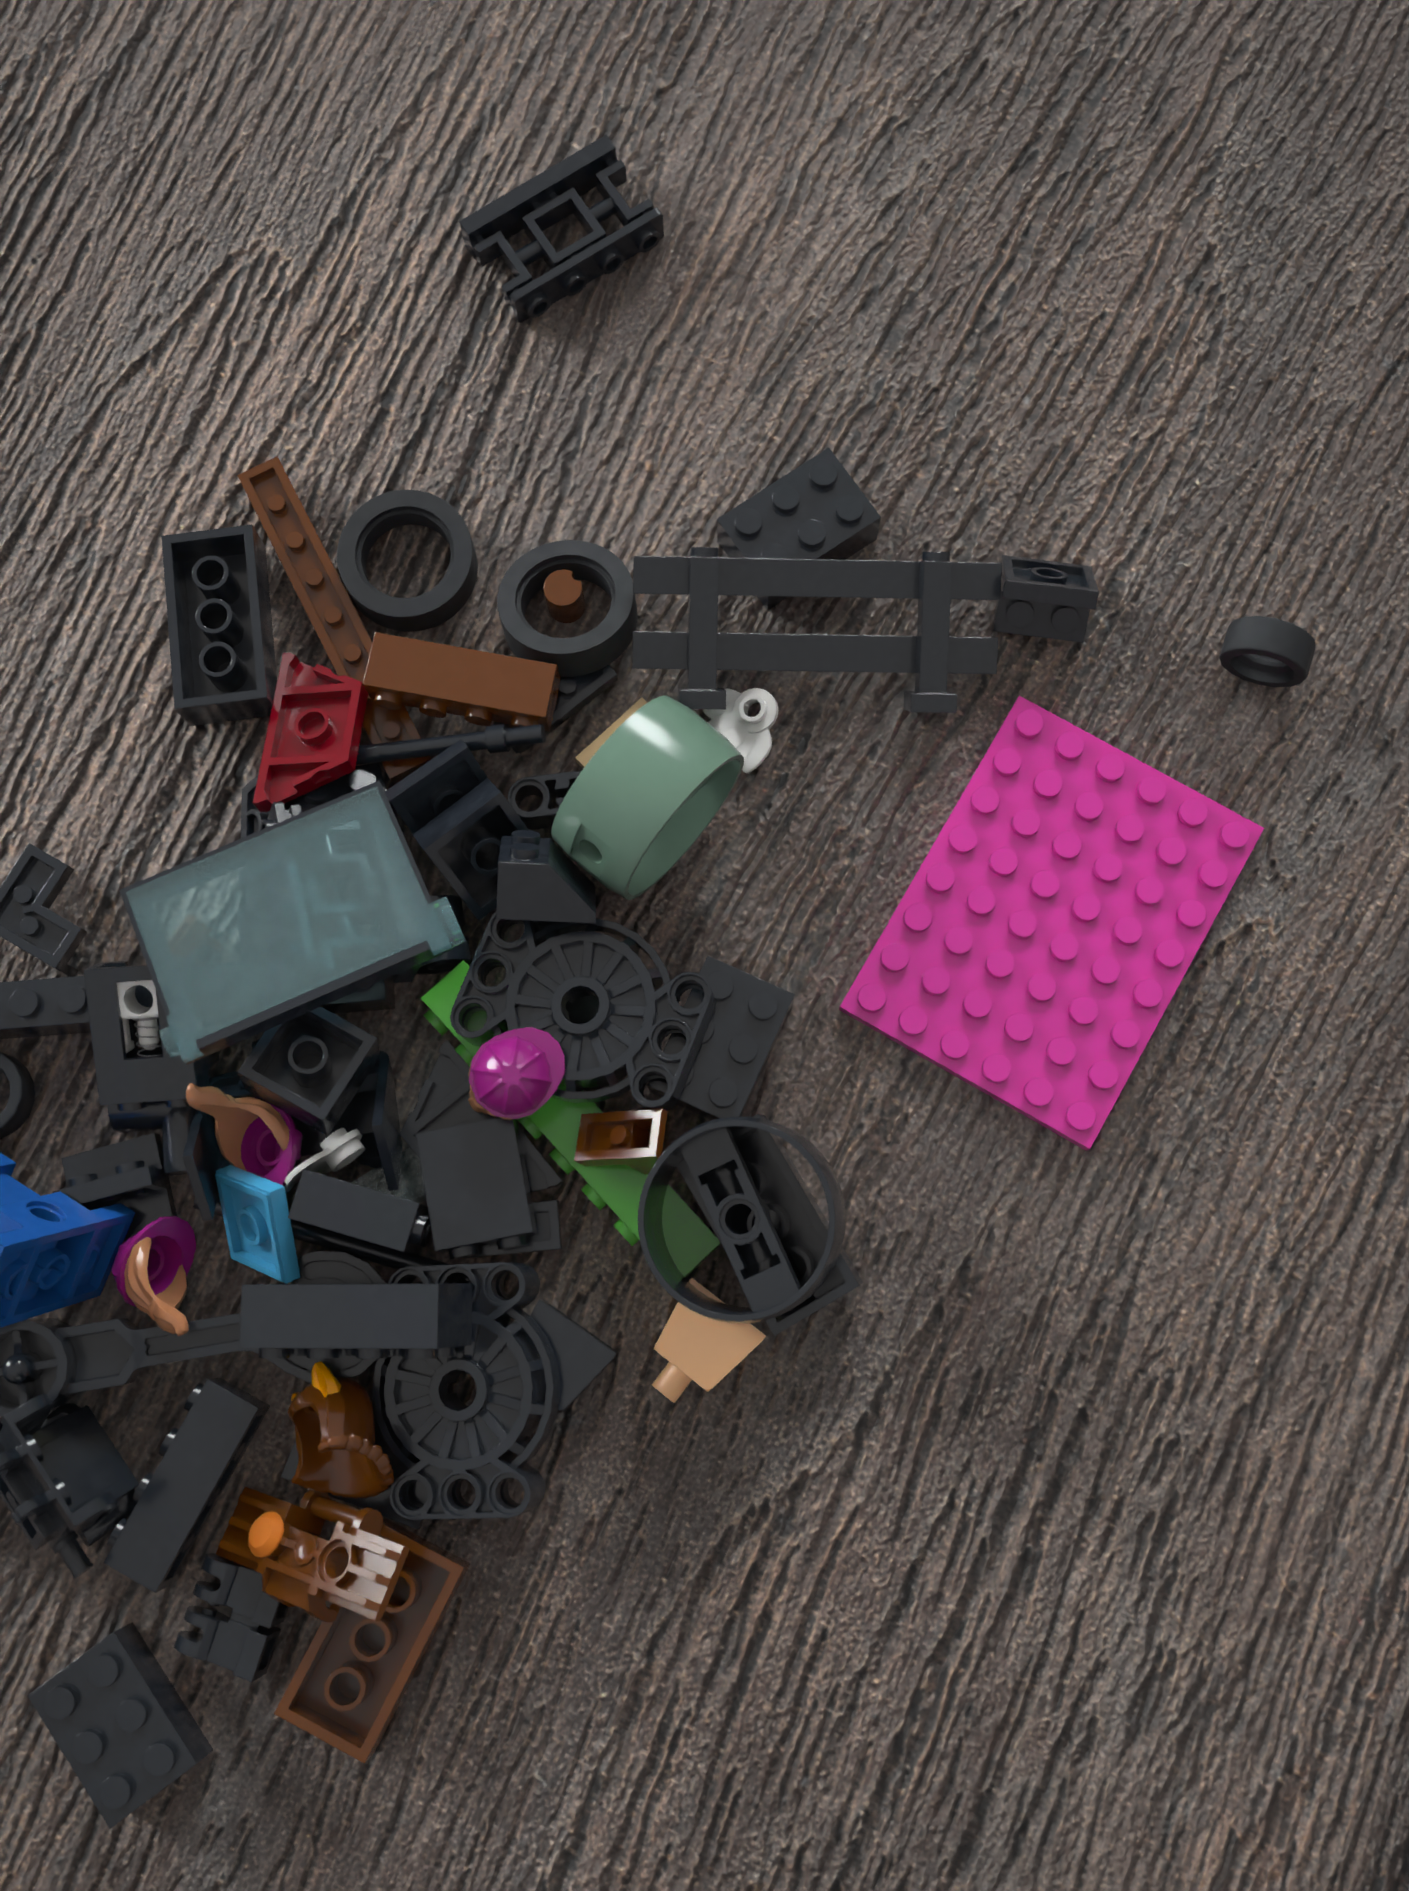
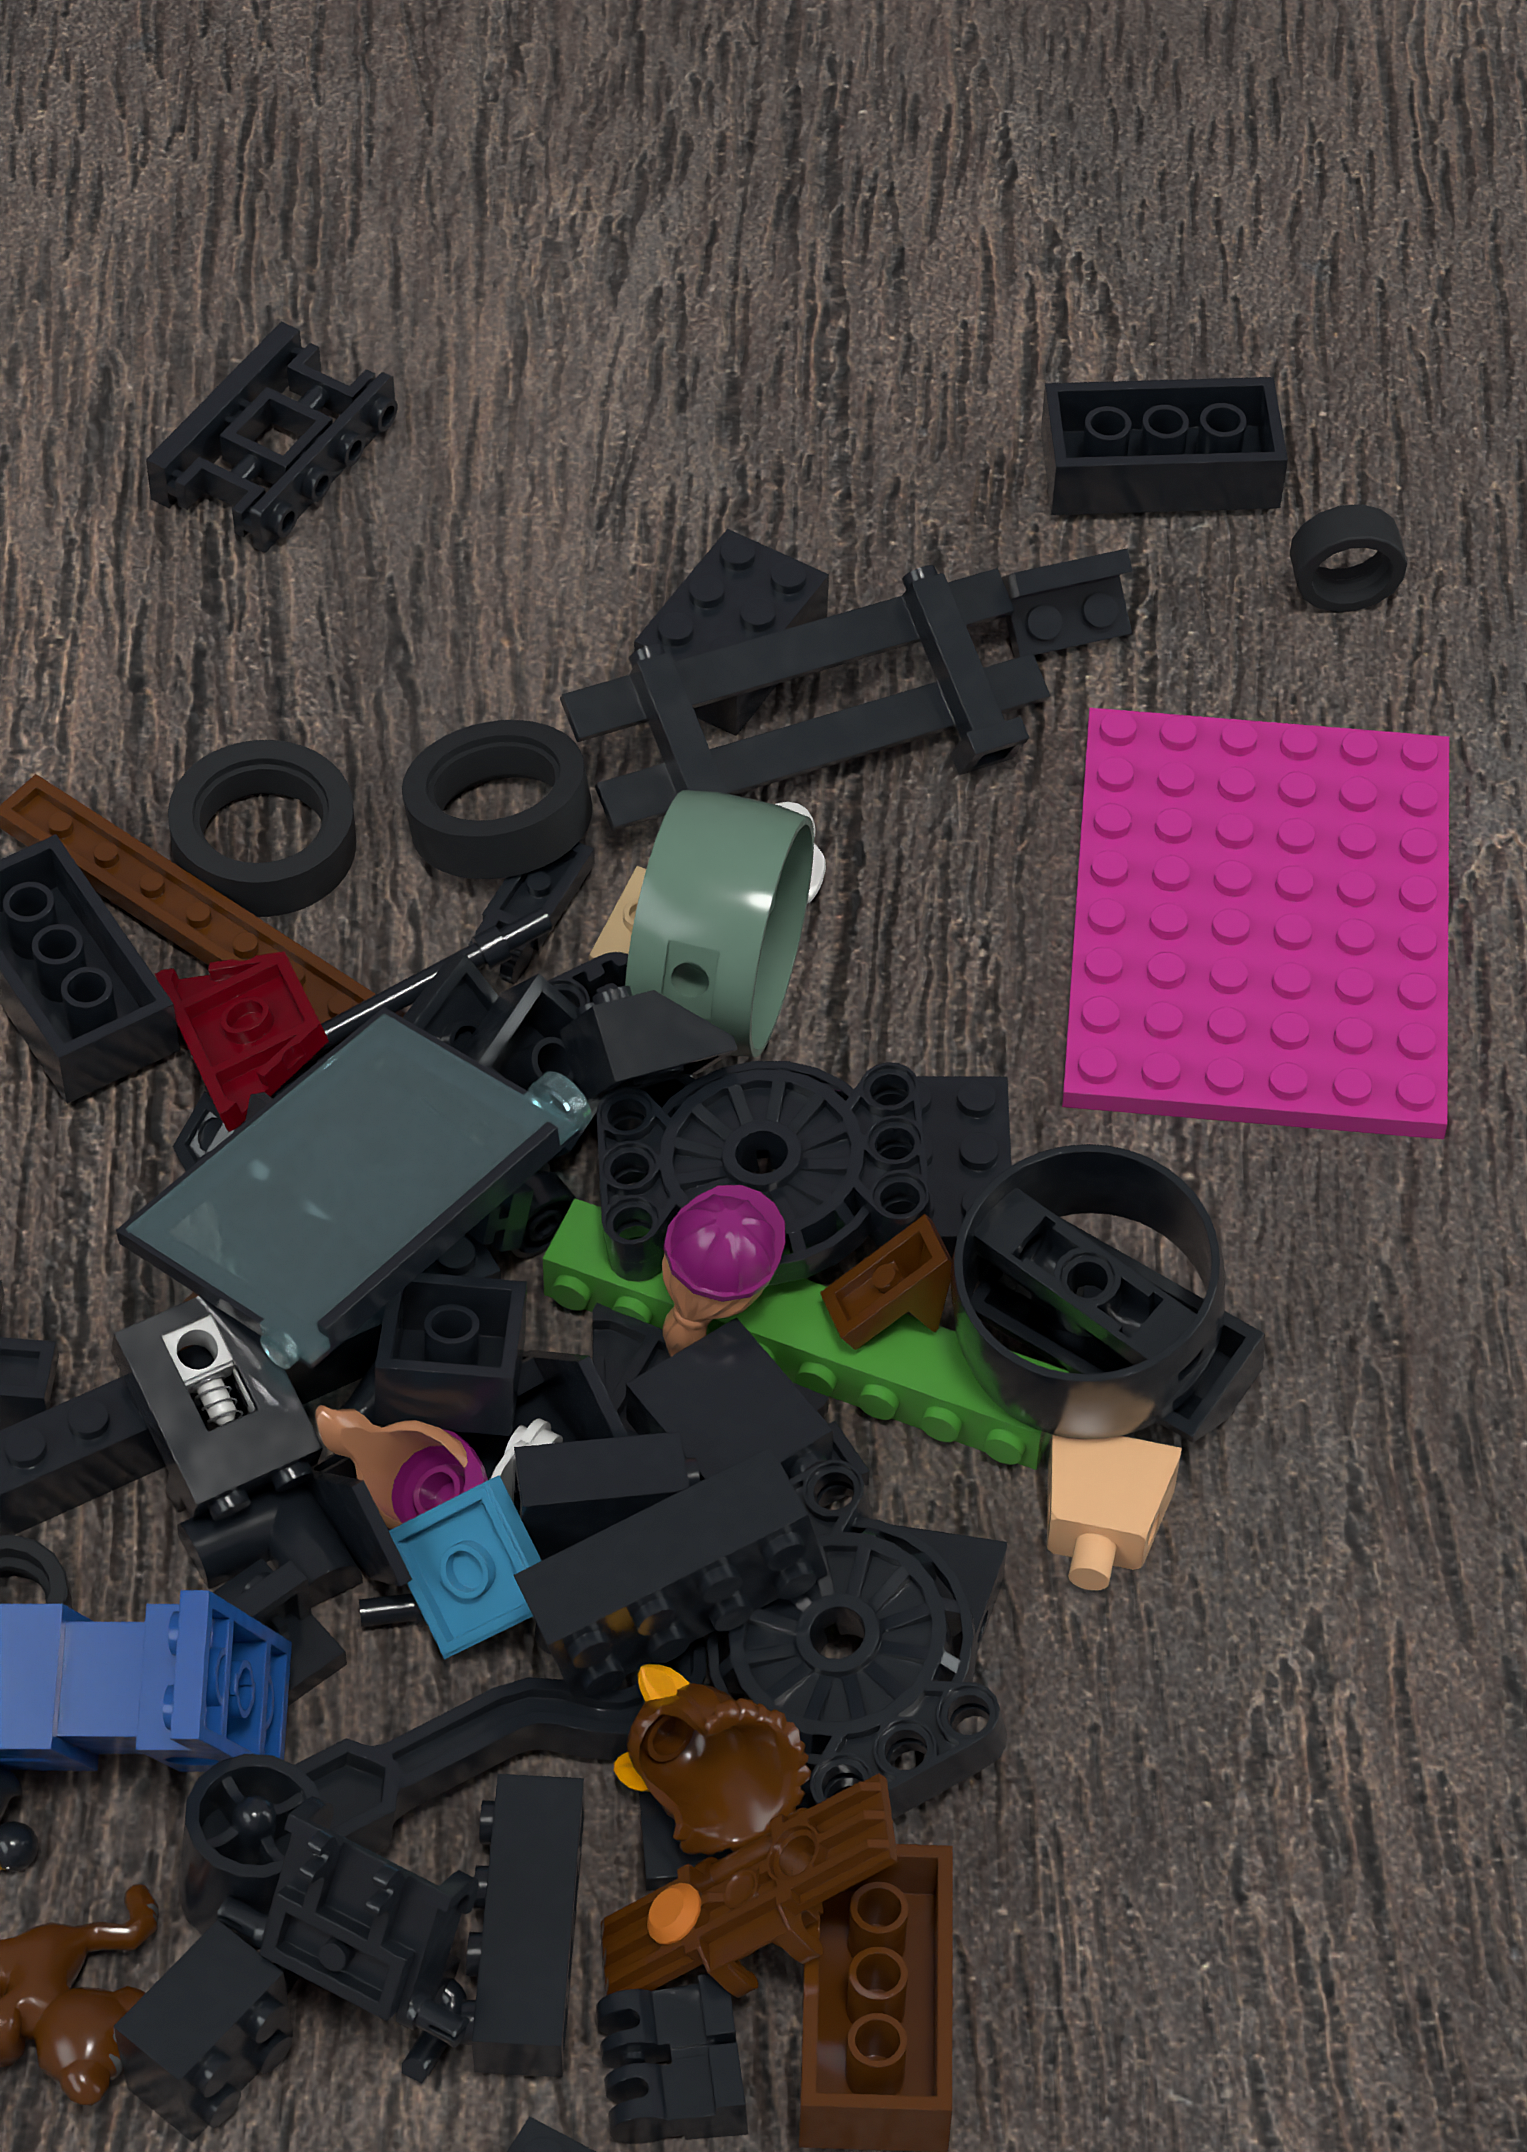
camera: 30 degrees left, 25 degrees down
(154, 1271) = (346, 1694): piece -> none
(460, 682) = (406, 908): reddish brown brick -> none
(564, 596) = (482, 789): reddish brown piece -> none
(1186, 494) = (1163, 445): none -> black brick

